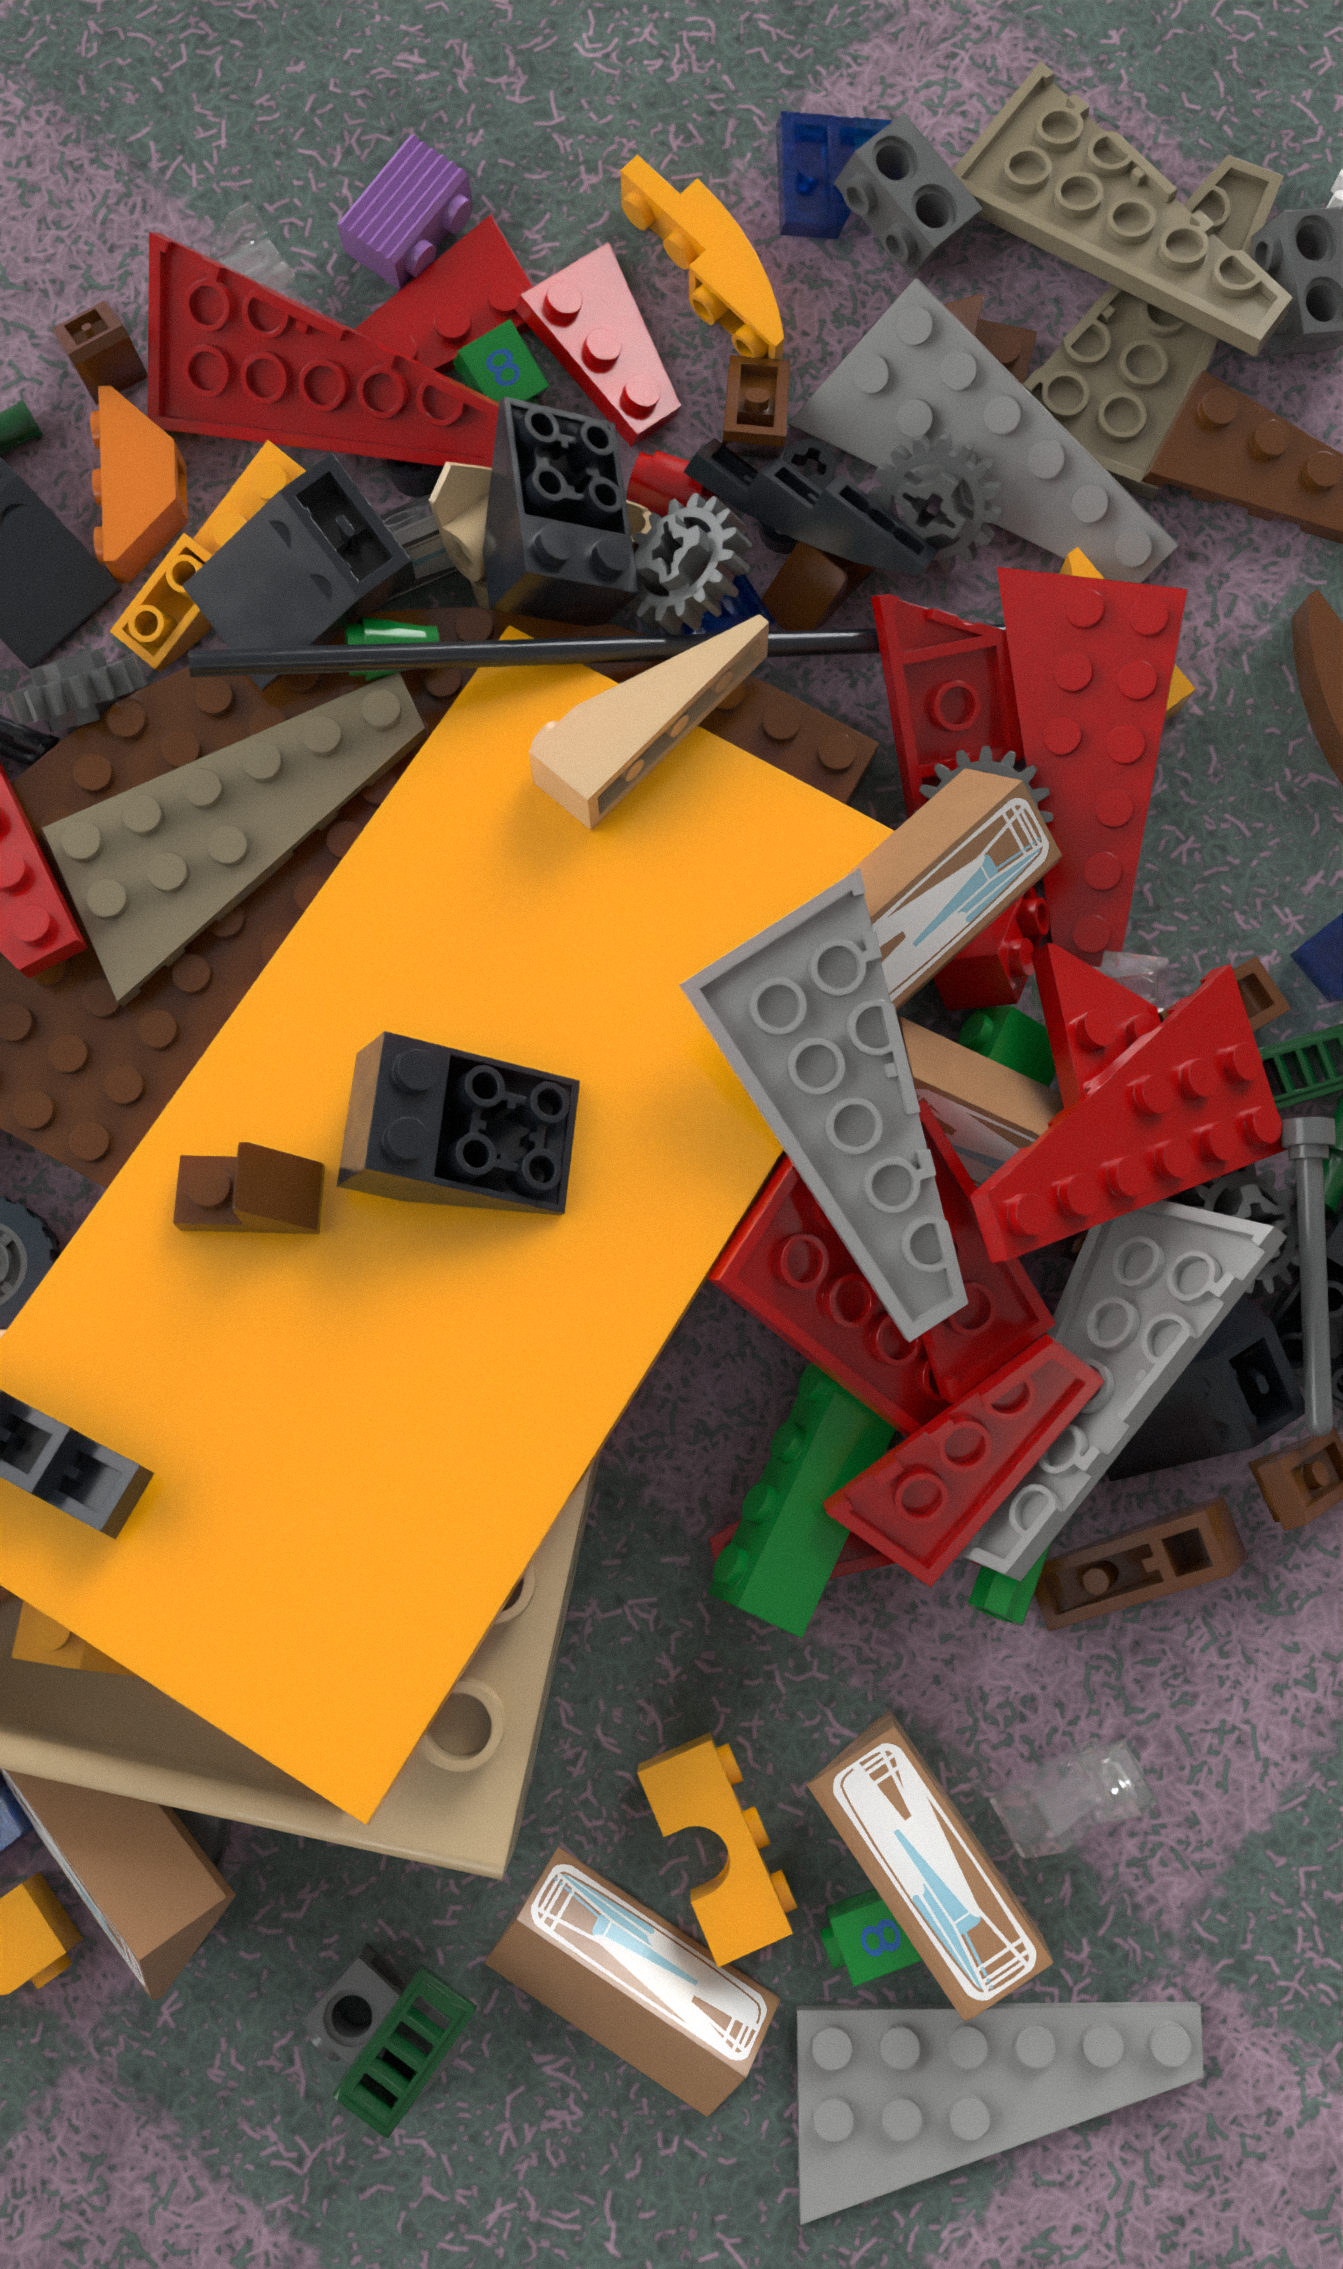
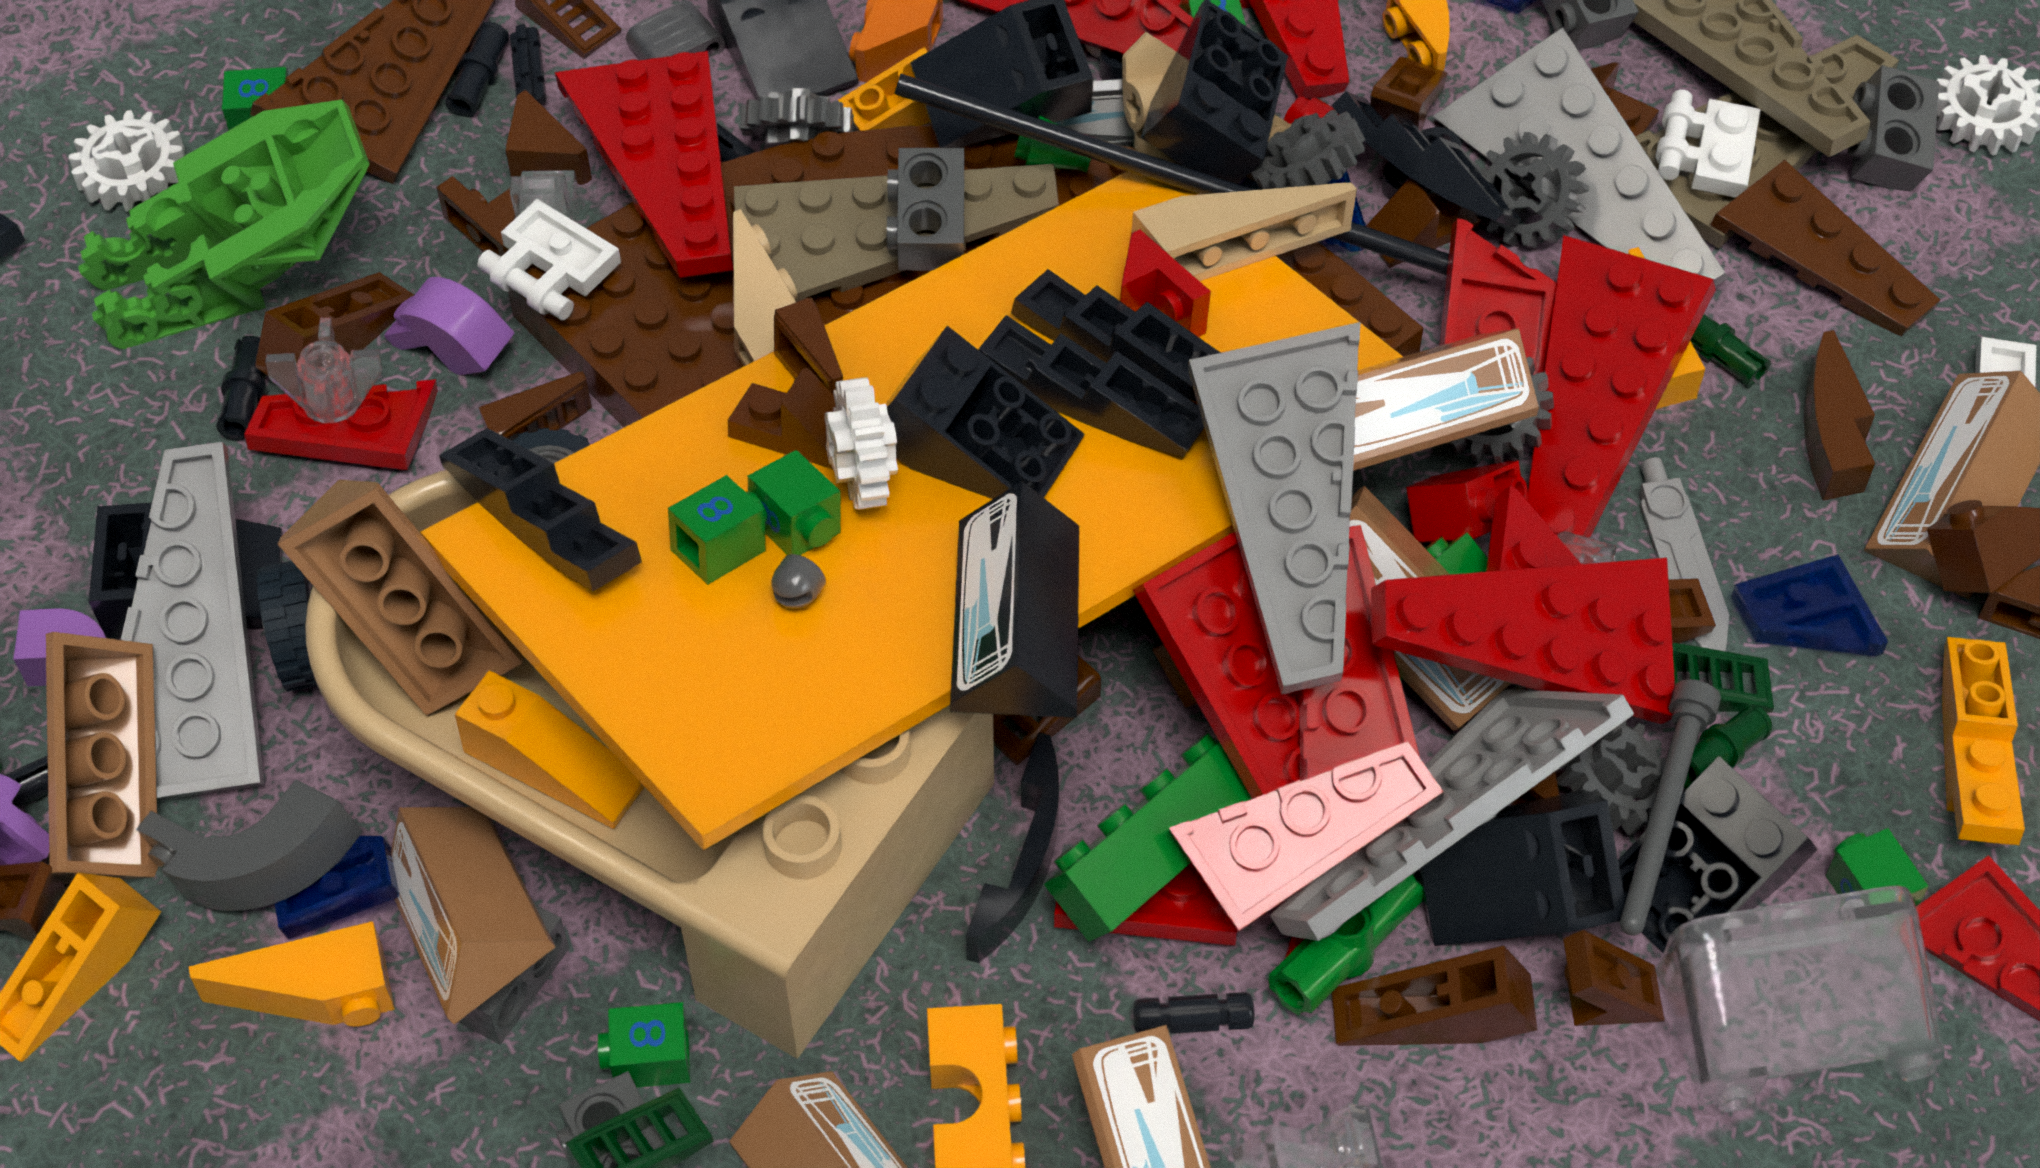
camera: 20 degrees right, 25 degrees down
(148, 1012) = (757, 291): none -> tan slope
(220, 1080) = (803, 342): none -> reddish brown slope
(224, 1394) = (717, 529): none -> green brick
(296, 797) = (927, 208): none -> dark grey brick
(298, 1327) = (798, 502): none -> green brick
(339, 1439) = (797, 581): none -> dark grey hinge
(345, 1231) = (861, 443): none -> white gear
(362, 1904) = (647, 1043): none -> green brick
(565, 1018) = (1104, 395): none -> black slope
(575, 929) = (1108, 325): none -> black slope
(585, 832) = (1164, 283): none -> red slope
(596, 1376) = (1016, 609): none -> black slope
(665, 1617) = (1003, 909): none -> black slope
(898, 1652) = (1195, 1012): none -> black axle
(1129, 368) = (1724, 149): none -> white plate
(1212, 643) = (1728, 351): none -> dark green pin
(1221, 909) = (1678, 538): none -> light grey piece

